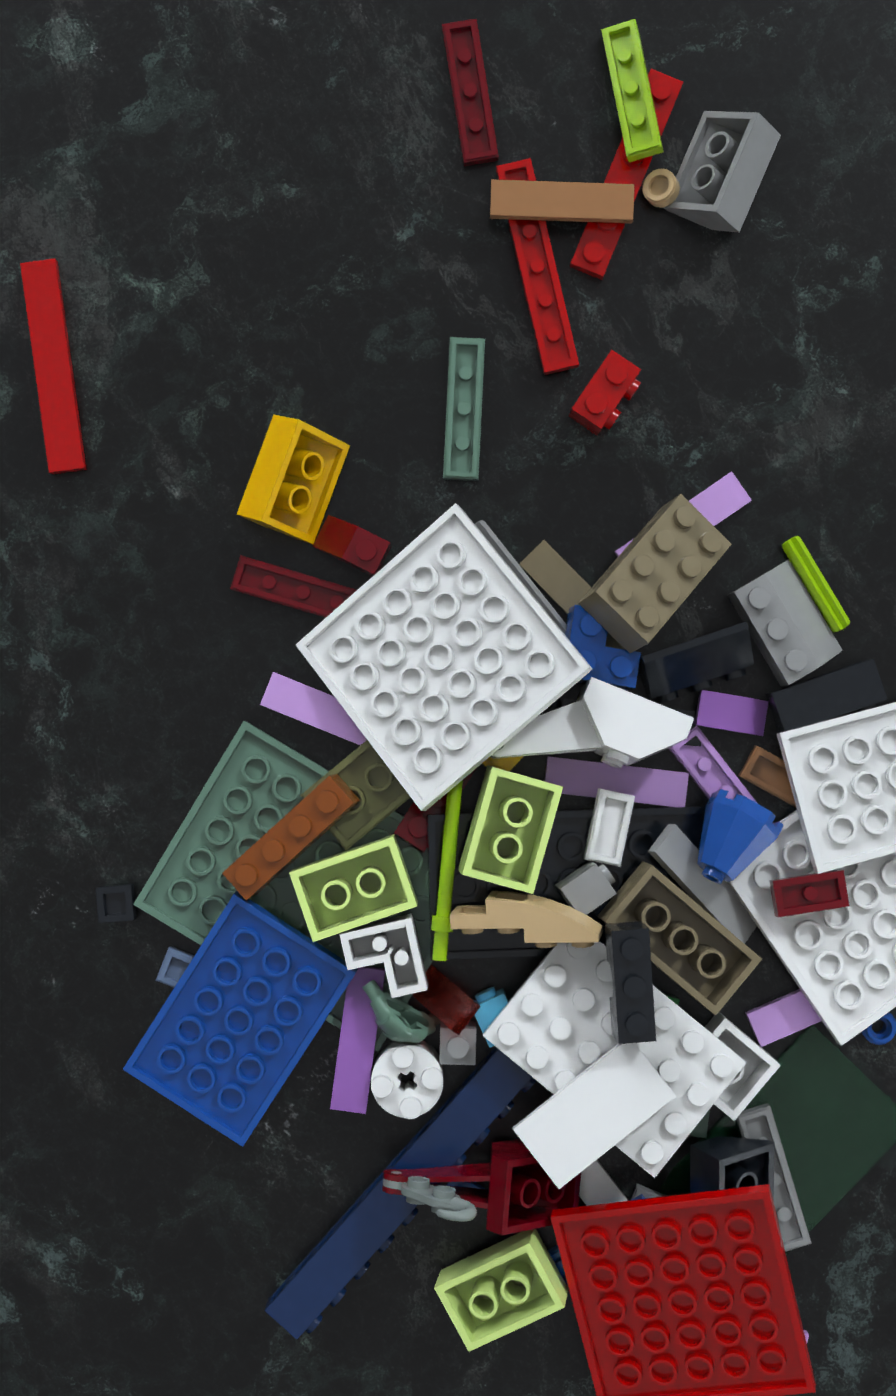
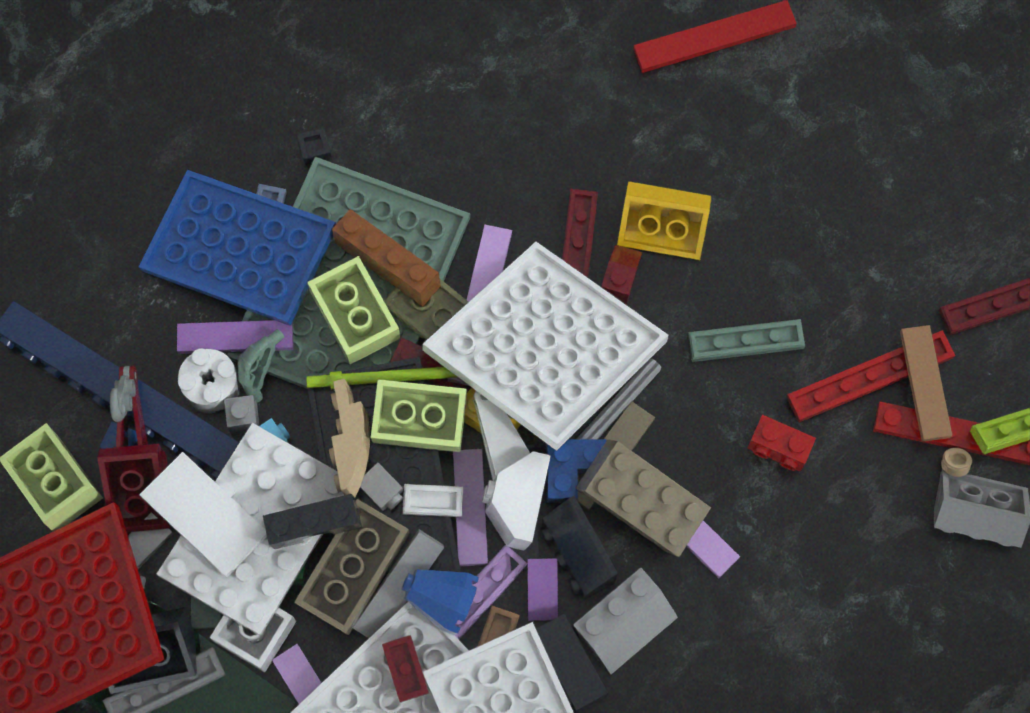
camera: 80 degrees right, 15 degrees down
(389, 942) = (313, 347): white brick -> none
(447, 1001) = (274, 398): clear red tile -> none
(816, 584) = (661, 642): lime axle -> none

